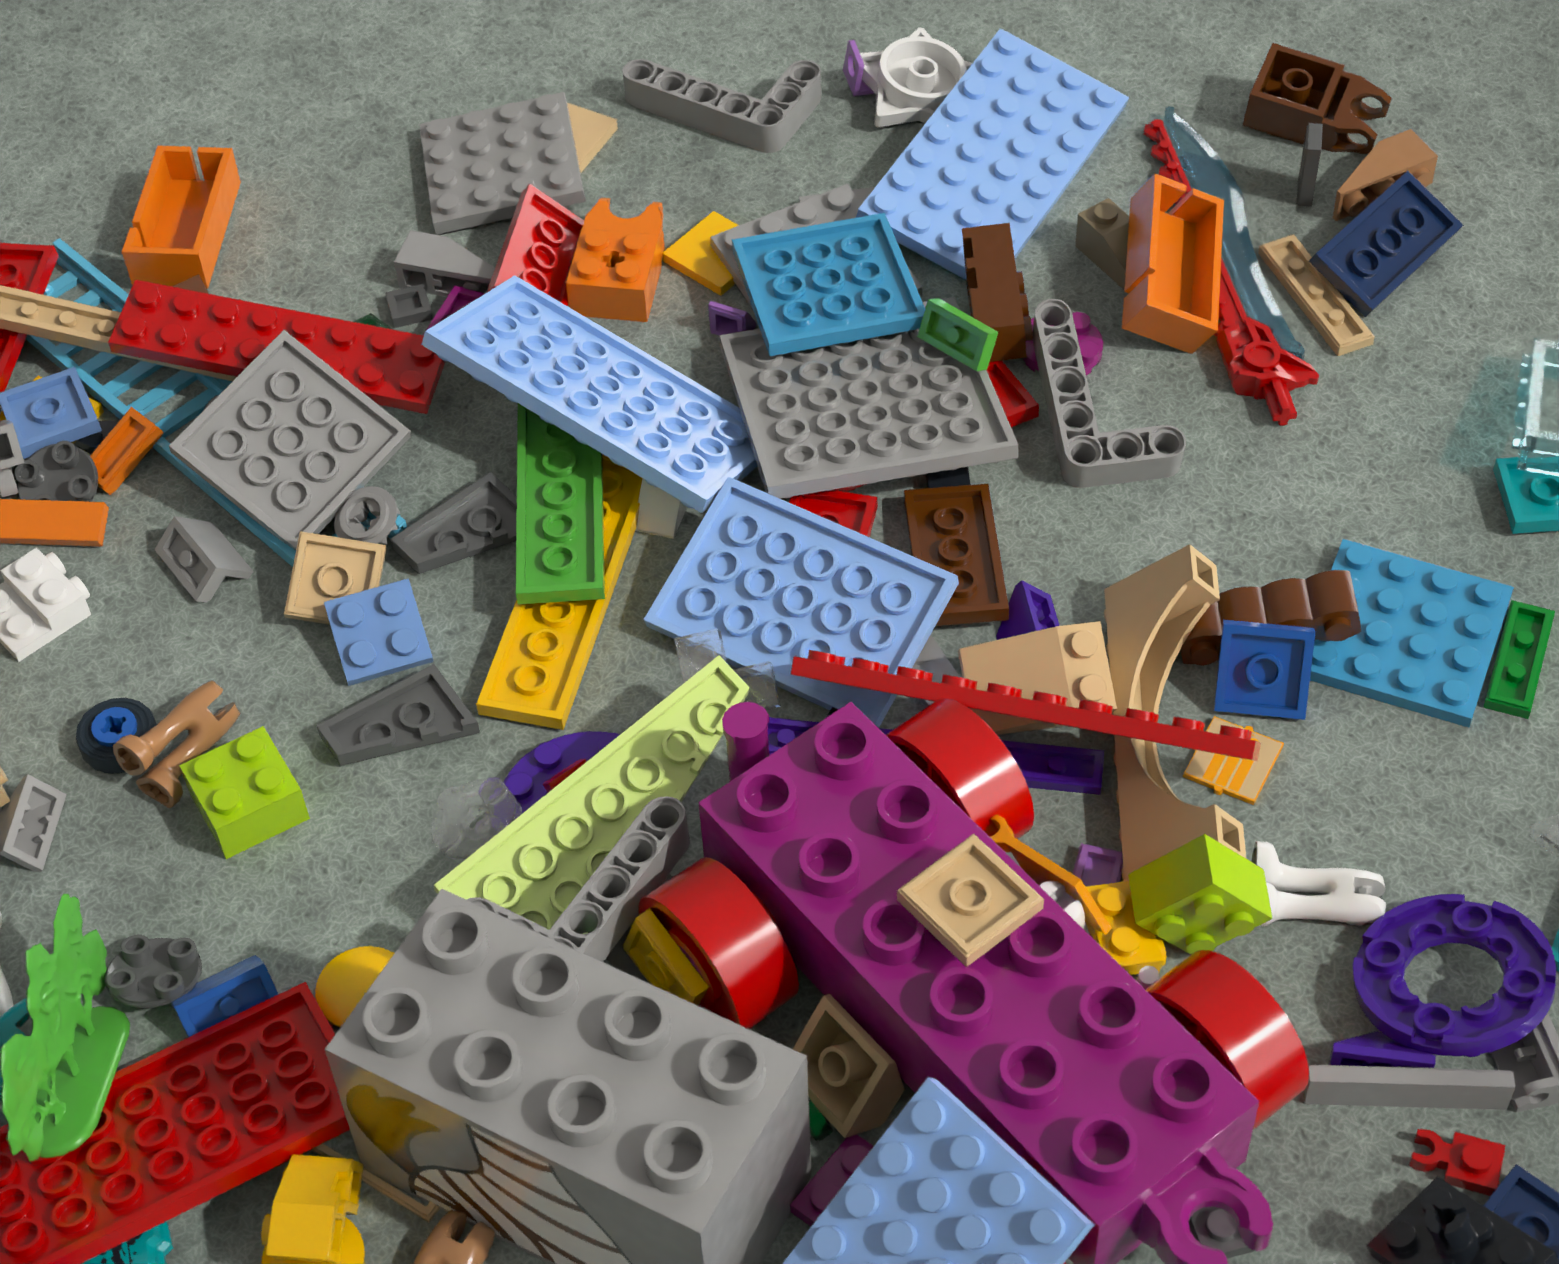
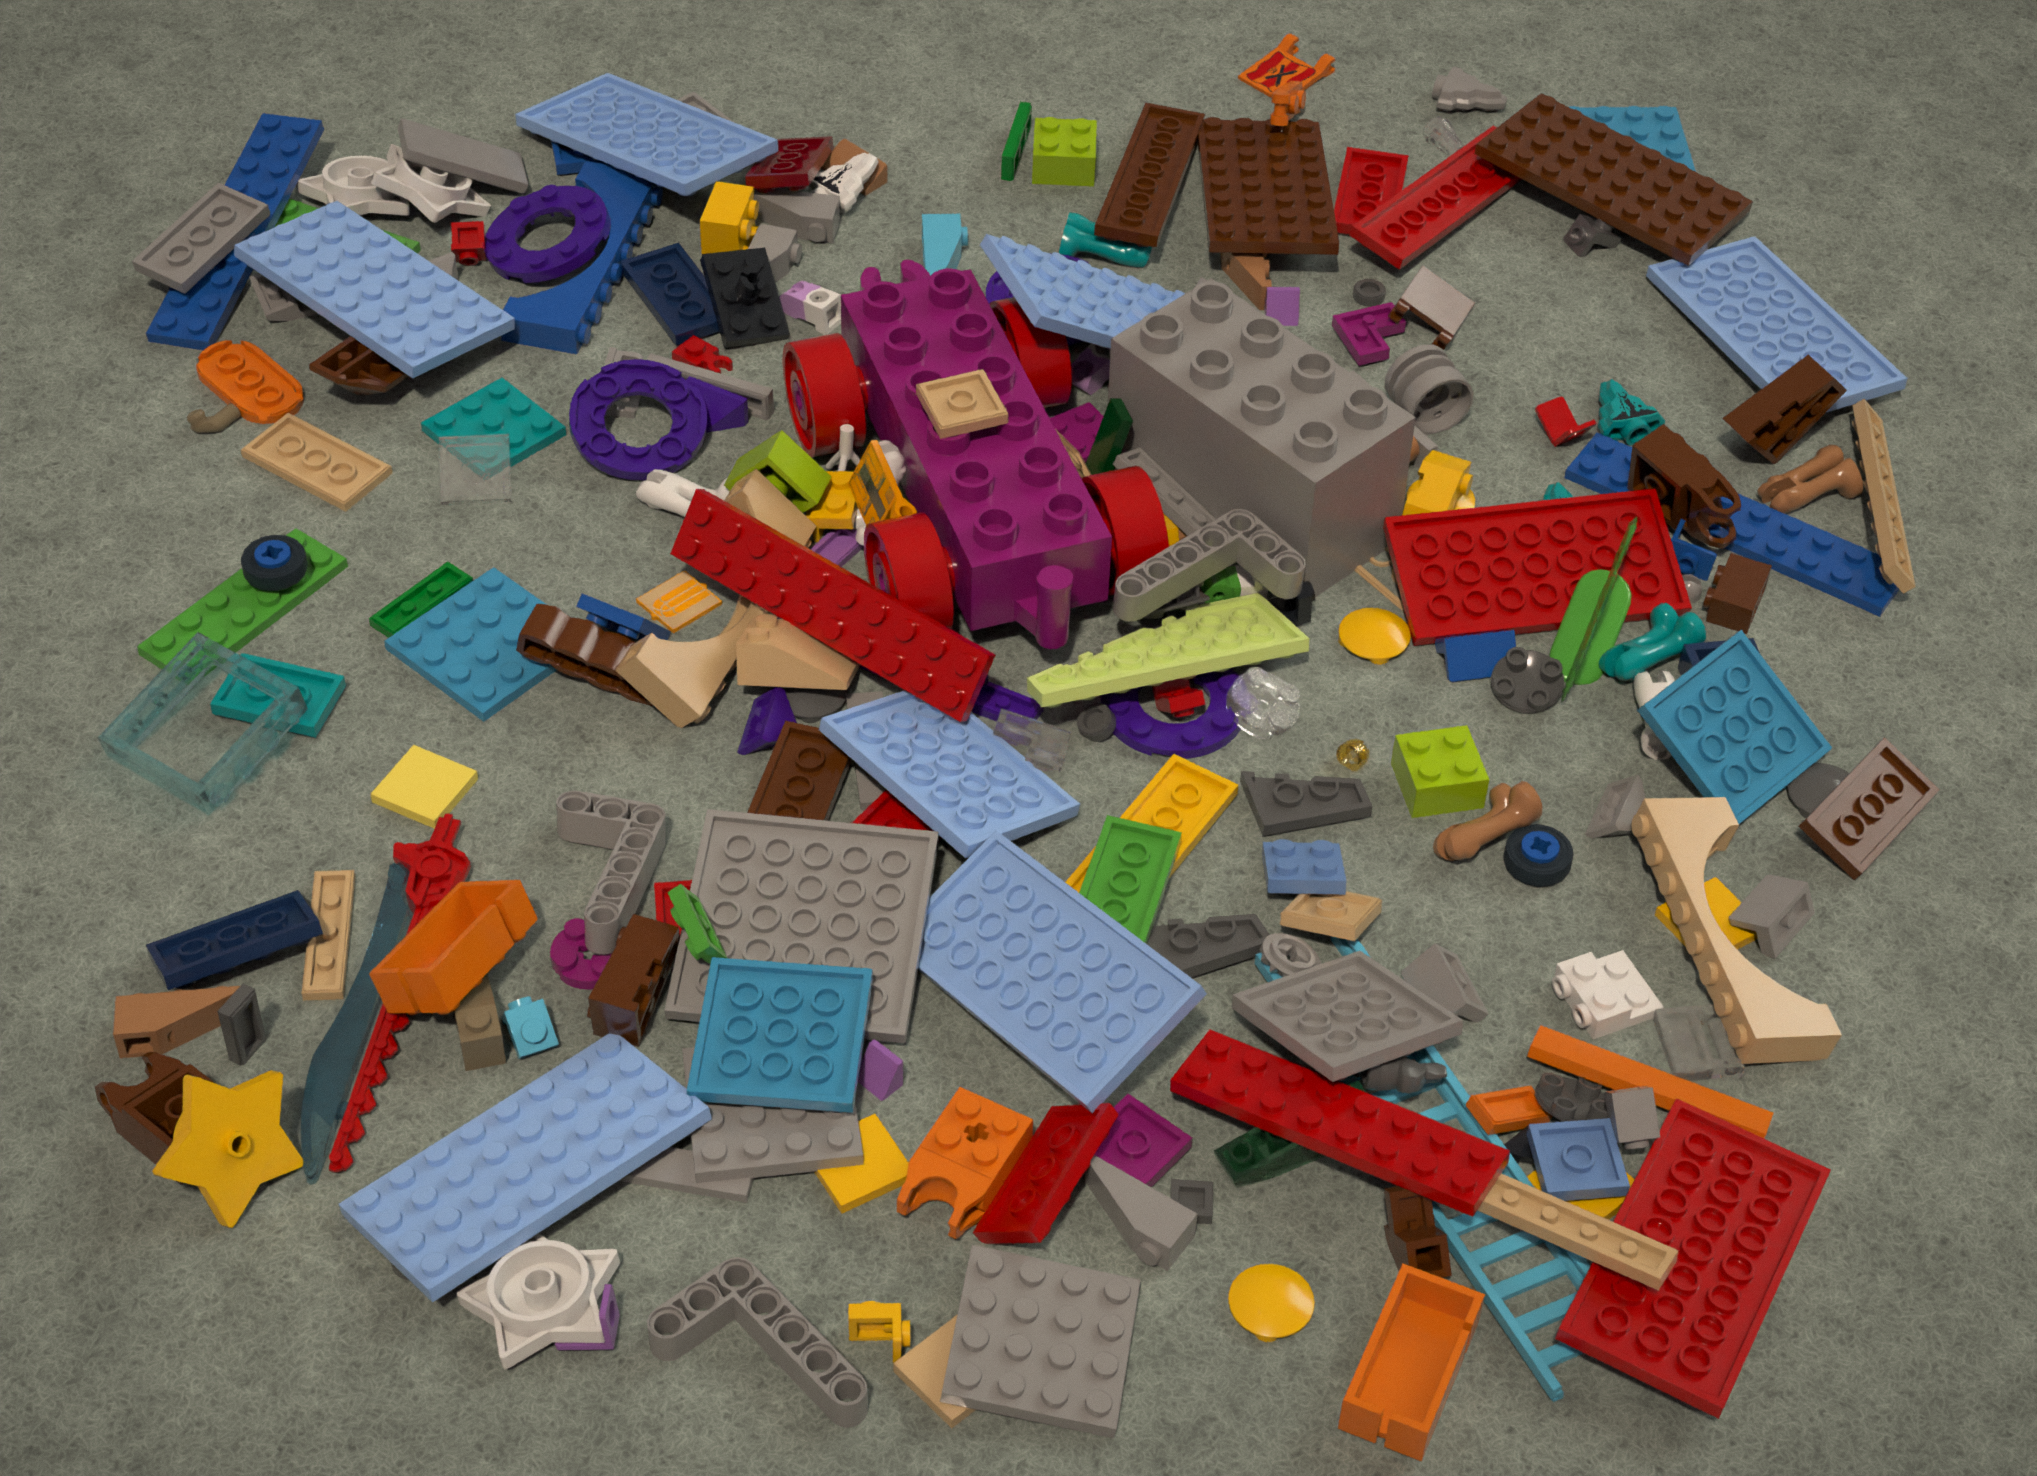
camera: 165 degrees left, 5 degrees down
(317, 251) = (1271, 1301): none -> yellow dish
(353, 801) = (1343, 754): none -> clear yellow hinge
(638, 135) = (879, 1322): none -> yellow bracket
(1076, 262) = (529, 1026): none -> medium azure bracket
(1237, 67) = (229, 1142): none -> yellow plate
(1341, 453) = (424, 786): none -> light yellow tile

